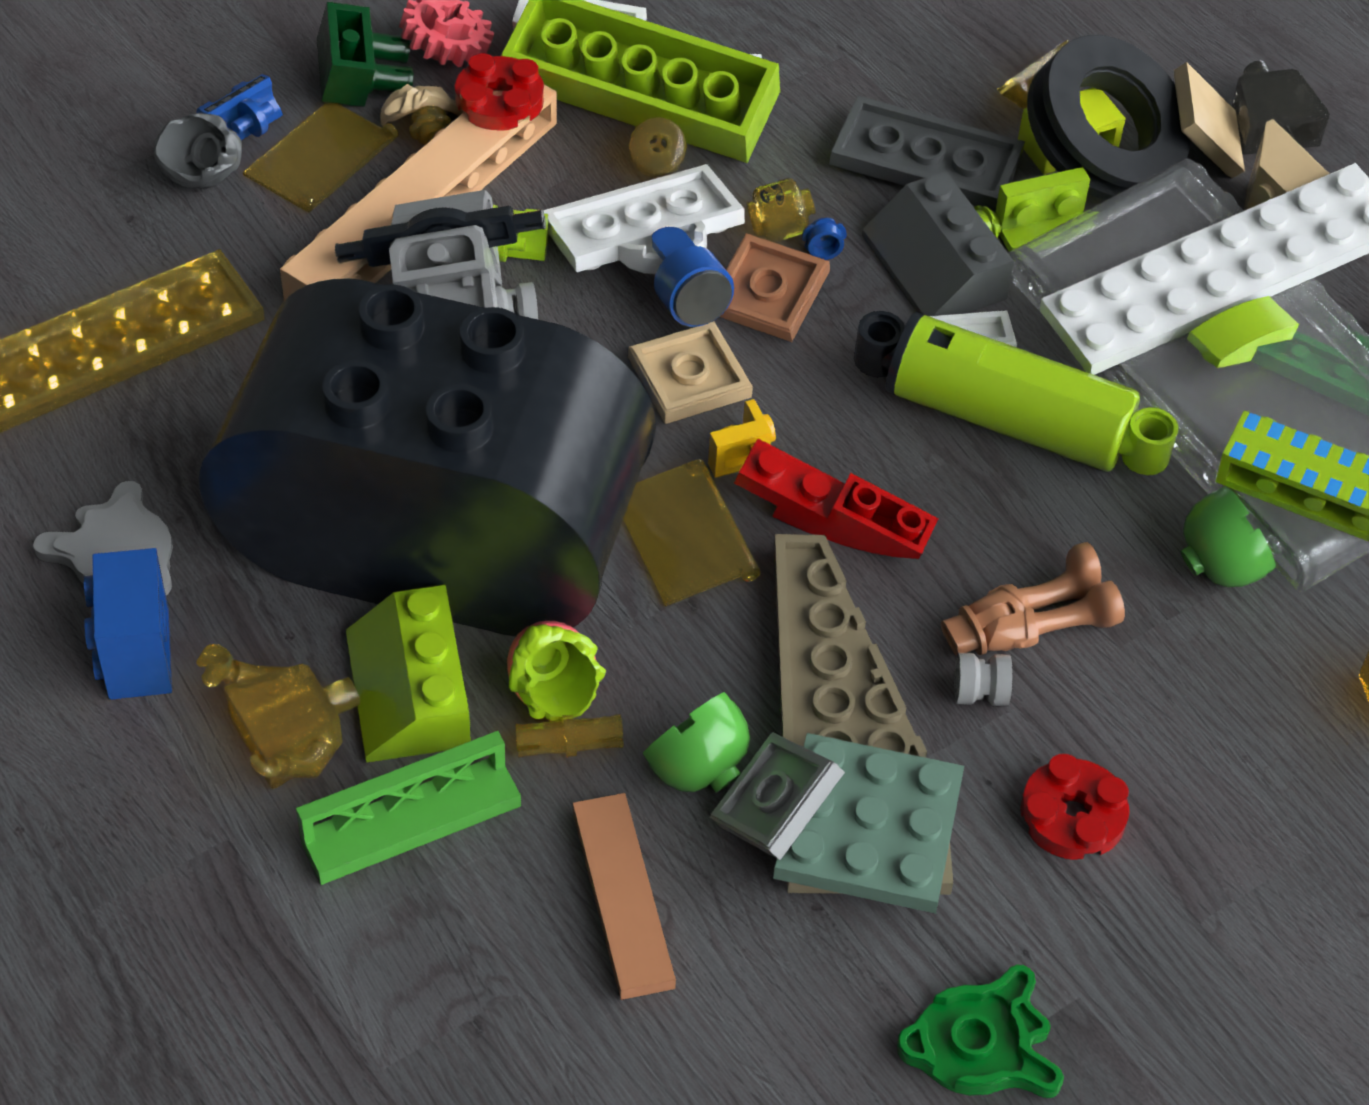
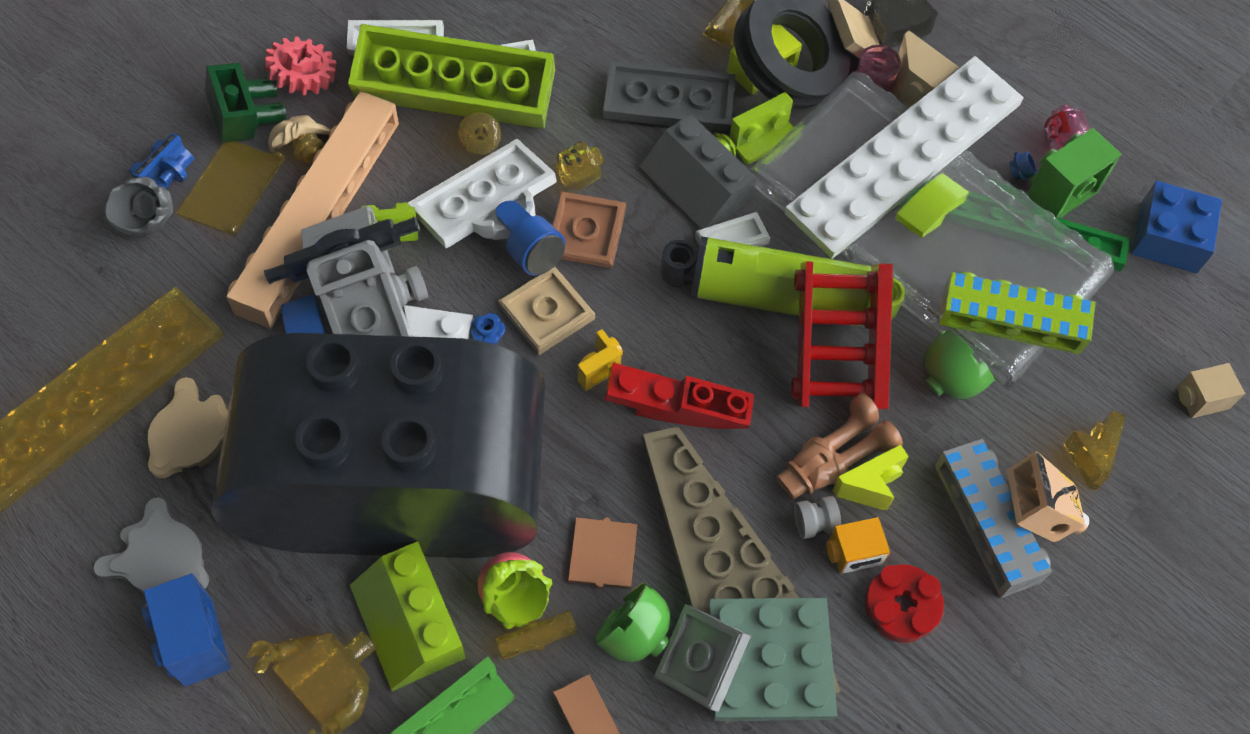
camera: 15 degrees left, 10 degrees up
(182, 415) = (186, 431): none -> tan tile
(515, 77) = (350, 98): red plate -> none
(683, 664) = (603, 553): none -> nougat piece
(687, 533) = (581, 445): clear yellow piece -> none
(824, 238) = (615, 180): blue plate -> none
(1028, 723) = (858, 545): none -> light orange brick
(1065, 650) = (868, 481): none -> neon yellow slope
(1122, 449) = (875, 318): none -> red fence
(1227, 732) = (989, 517): none -> light grey brick
(1228, 163) = (881, 65): none -> clear pink wheel
(1305, 719) = (1045, 499): none -> light nougat torso

